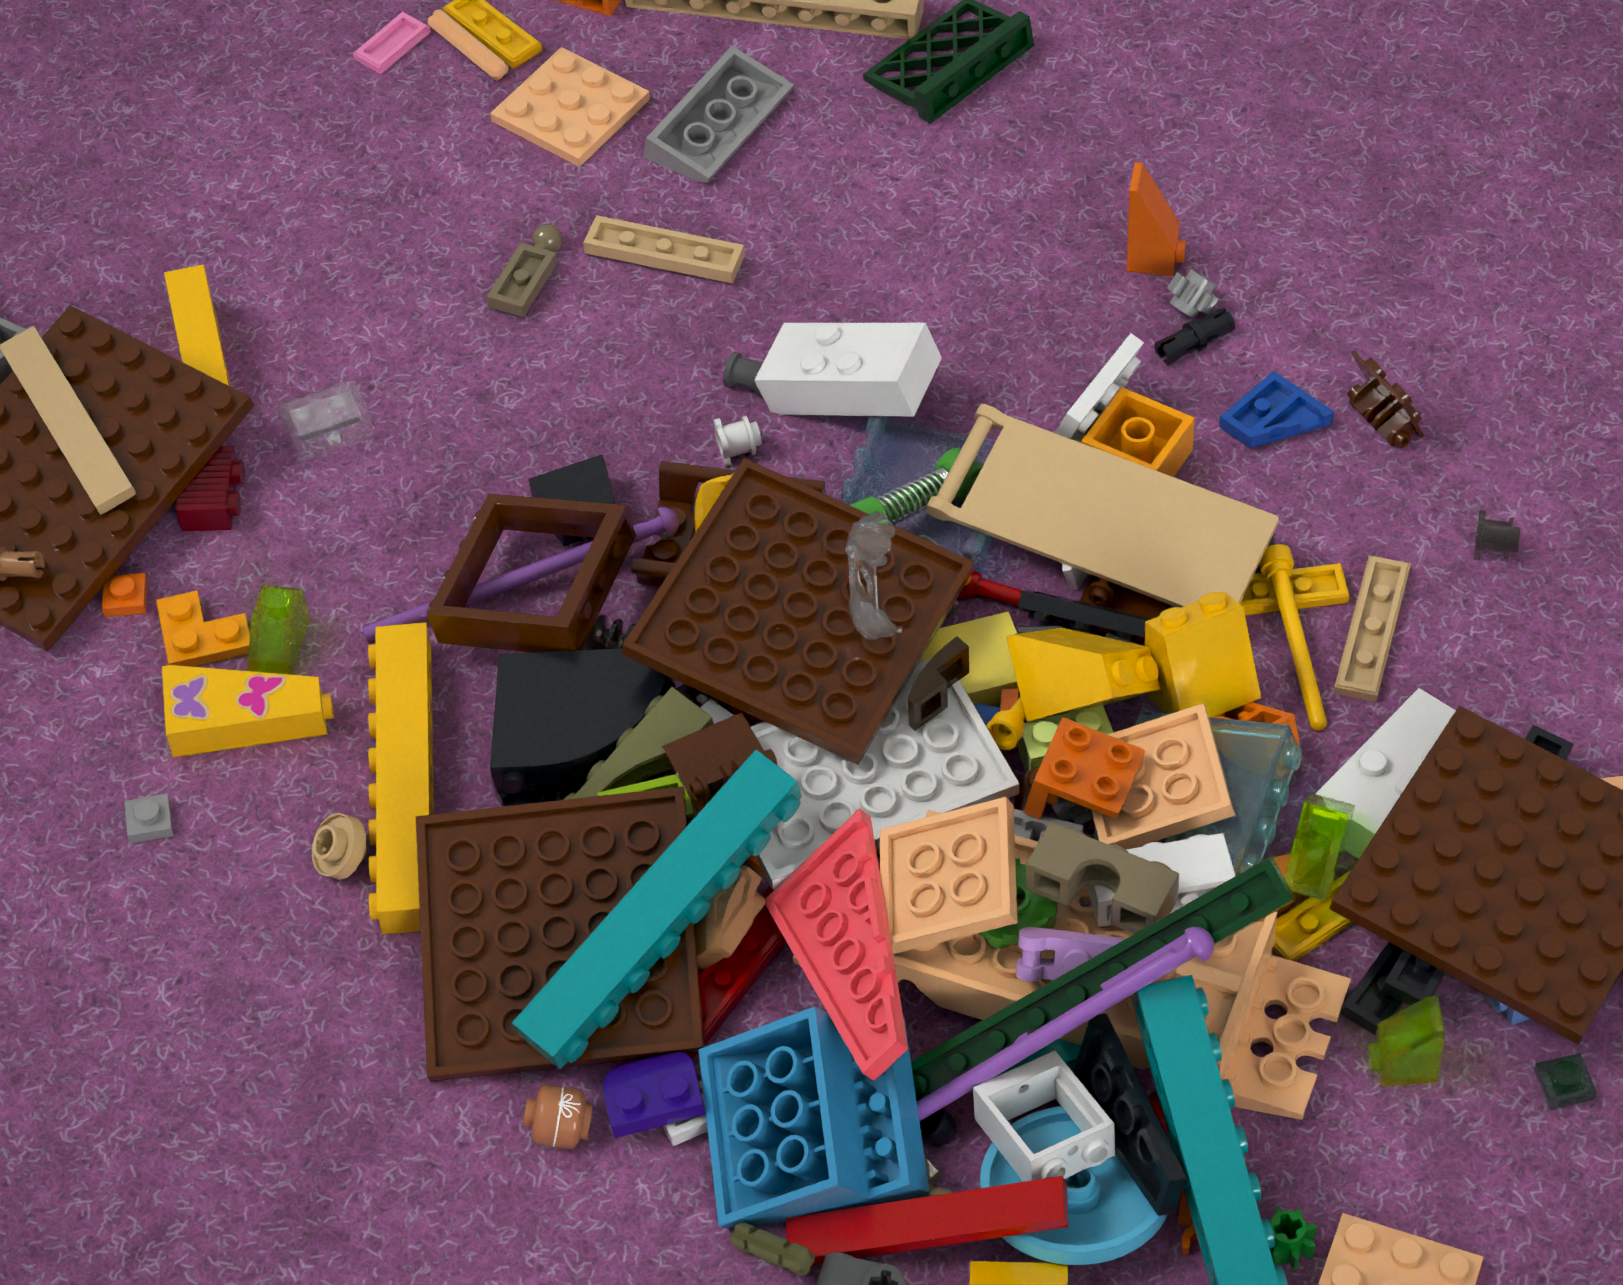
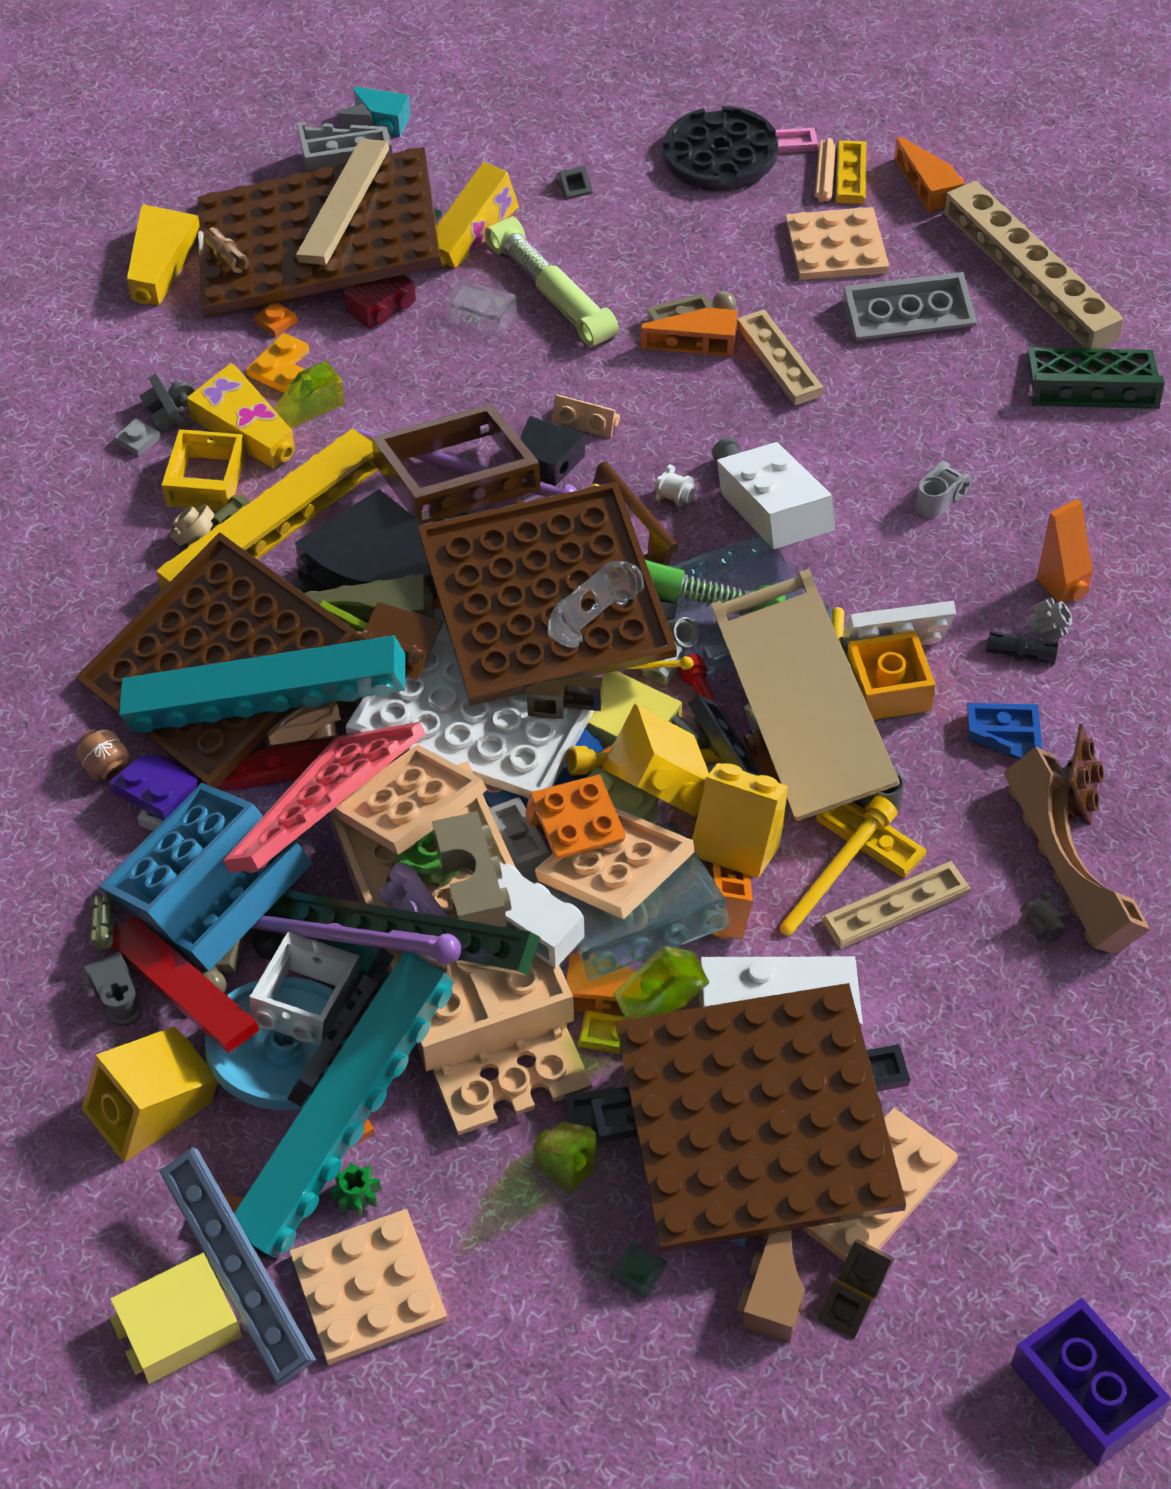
camera: 45 degrees right, 0 degrees up
(155, 764) = (171, 399): none -> dark grey hips
(241, 235) = (574, 182): none -> dark grey slope
(293, 816) = (194, 492): none -> yellow window
(313, 119) = (747, 152): none -> black plate
(353, 796) = (231, 508): none -> olive pin
(452, 351) = (592, 323): none -> yellowish green piece
(564, 442) = (584, 416): none -> light nougat hinge
(565, 282) = (698, 331): none -> orange slope
(960, 258) = (940, 490): none -> light grey piece
(1370, 436) = (1043, 793): none -> medium nougat arch

